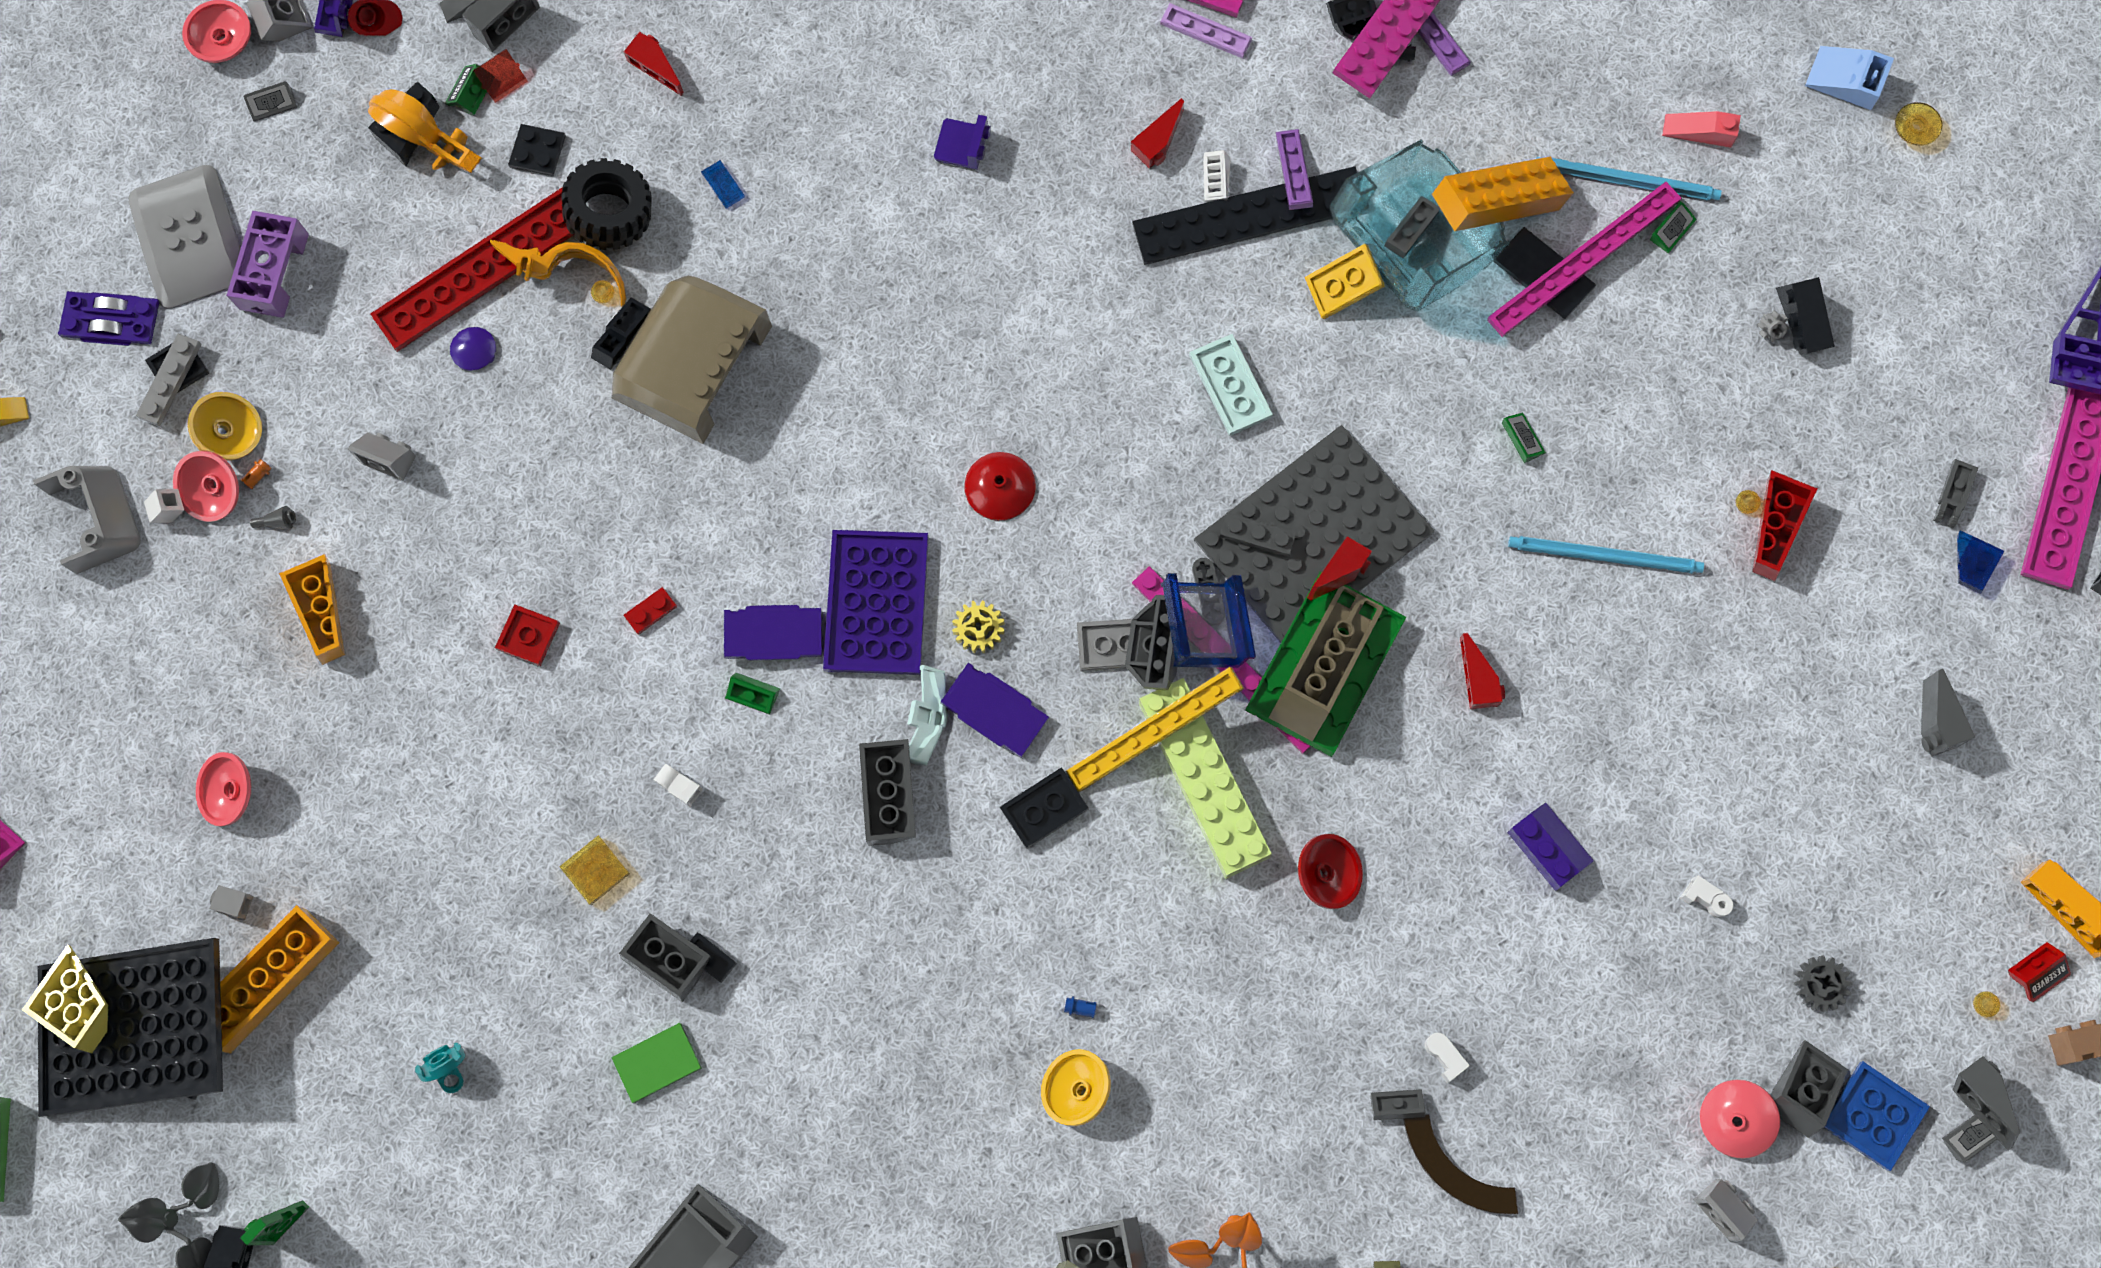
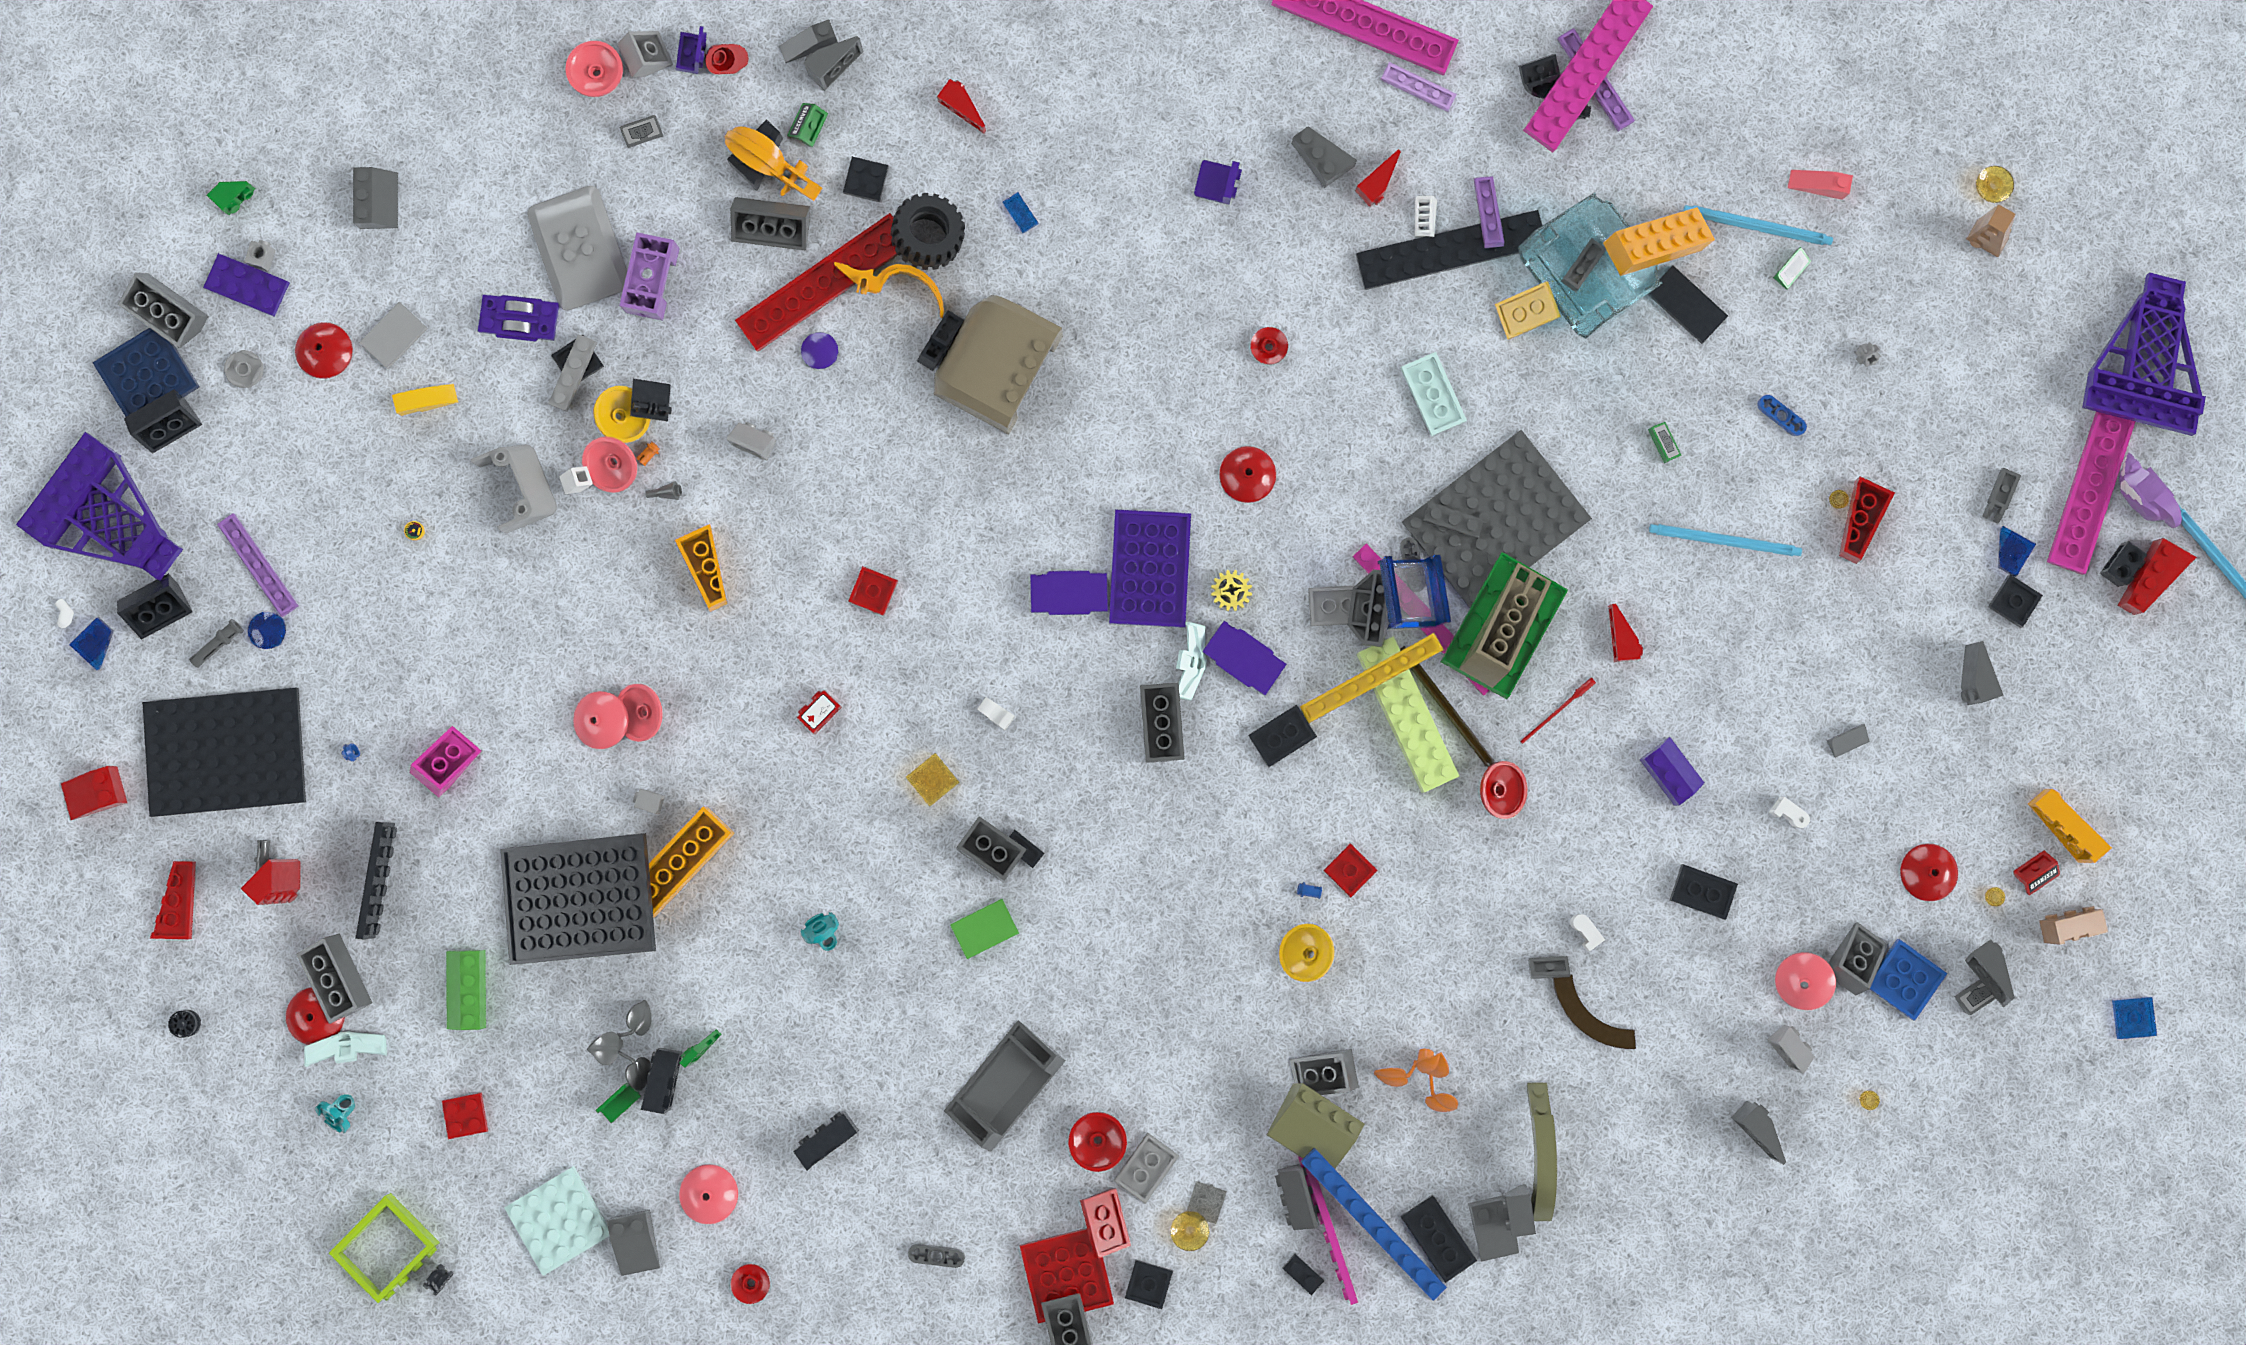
camera: 10 degrees left, 10 degrees up
(70, 1004) = (532, 881): light yellow wedge -> none
(186, 802) = (610, 720): none -> coral dish
(261, 409) = (650, 400): none -> black hinge
(418, 202) = (769, 223): none -> dark grey slope
(452, 785) = (818, 711): none -> brick
(500, 75) = (833, 113): clear red piece -> none
(602, 291) = (924, 304): clear yellow plate -> none
(650, 610) = (970, 572): red plate -> none
(752, 693) = (1052, 640): green slope -> none
(1025, 320) = (1271, 336): none -> red dish
(1090, 110) = (1322, 156): none -> dark grey wedge
(1133, 980) = (1350, 870): none -> red tile
(1260, 775) = (1452, 714): none -> dark brown piece
(1342, 569) = (1521, 549): red slope -> none
(1425, 748) = (1578, 692): none -> red piece
(1583, 259) = (1720, 295): dark pink plate -> none
(1598, 1002) = (1703, 892): none -> black plate
(1668, 392) = (1781, 407): none -> blue beam
(1779, 803) = (1848, 740): none -> slope
(1806, 315) = (1895, 346): black wedge -> none
(1819, 993) = (1871, 887): dark grey gear -> none
(1850, 74) = (1943, 140): light blue slope -> none
(1881, 978) = (1917, 872): none -> red dish
(1920, 175) = (1992, 230): none -> medium nougat wedge
(1983, 623) = (2015, 601): none -> black plate

